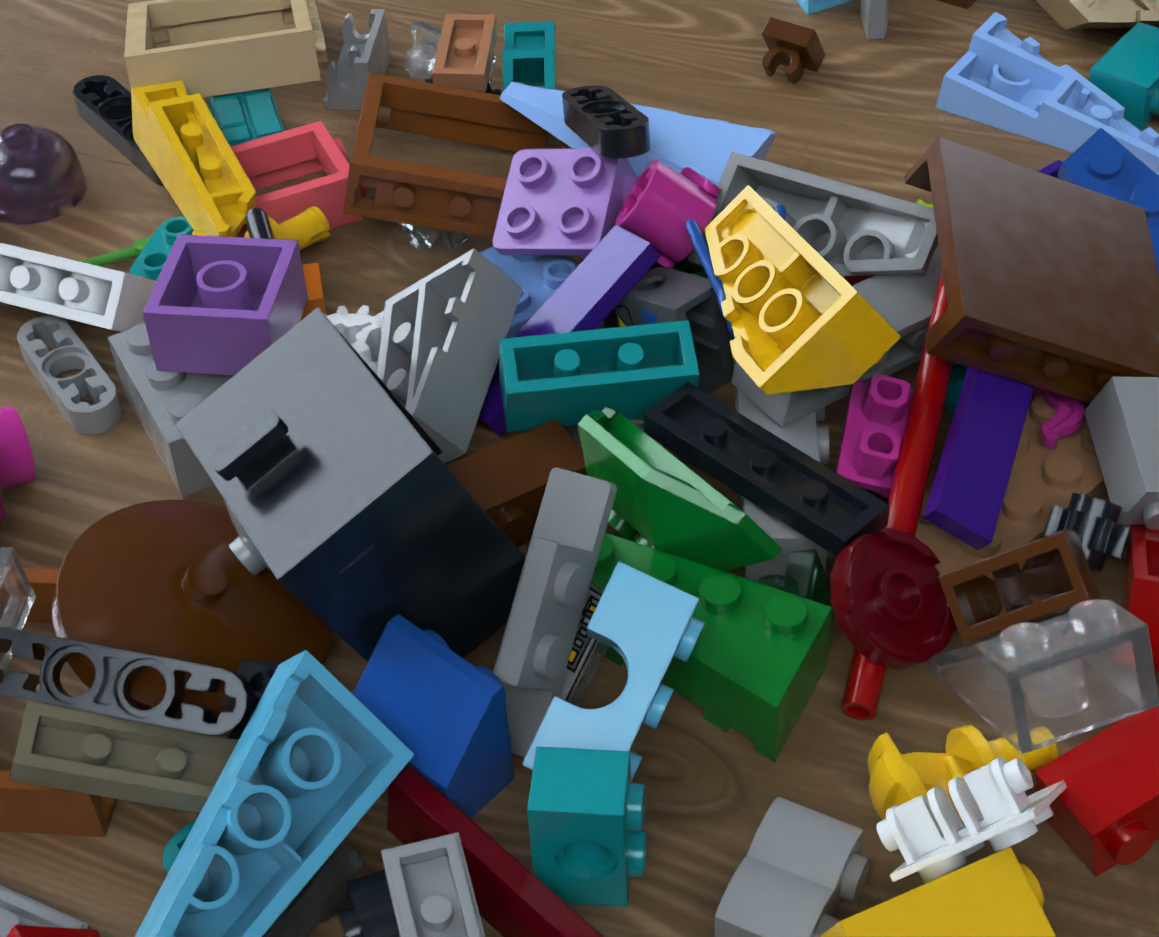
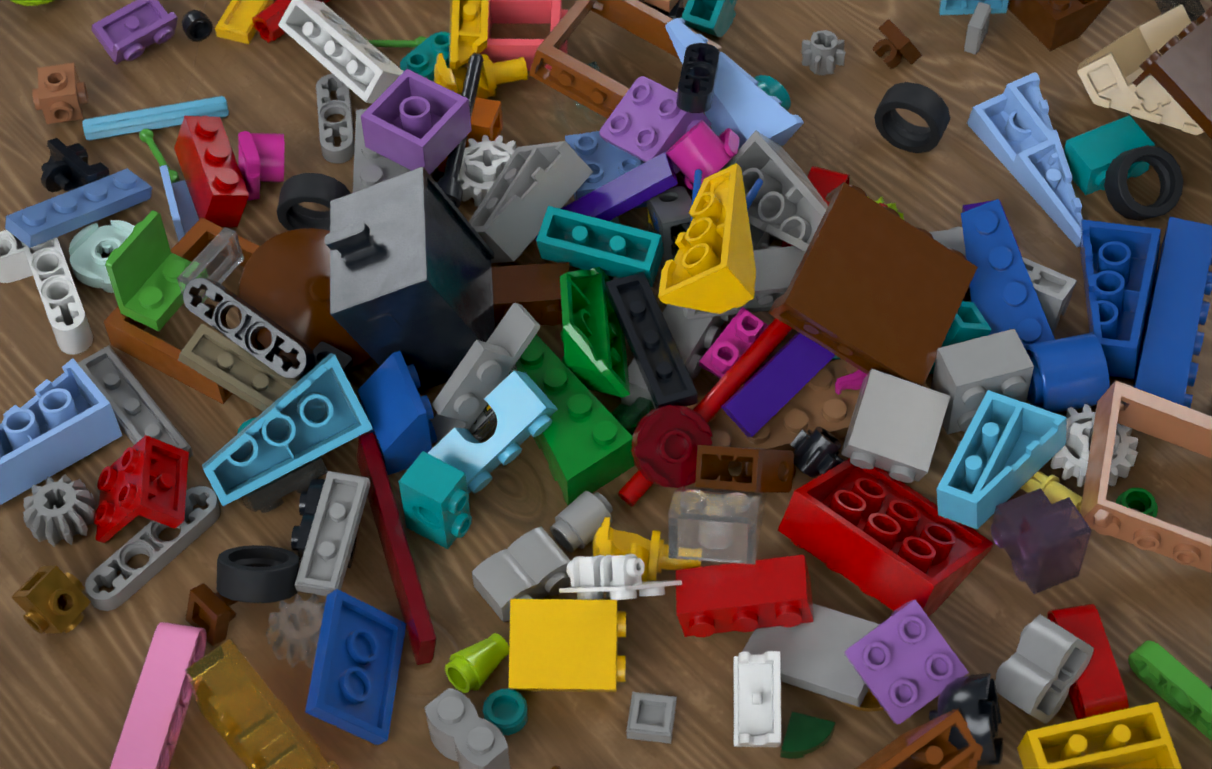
camera: 25 degrees right, 10 degrees up
(99, 452) = (308, 188): none -> black tyre
(707, 84) = (823, 52): none -> light grey gear
(823, 763) = (580, 520): none -> light grey brick
(874, 74) = (920, 101): none -> black tyre

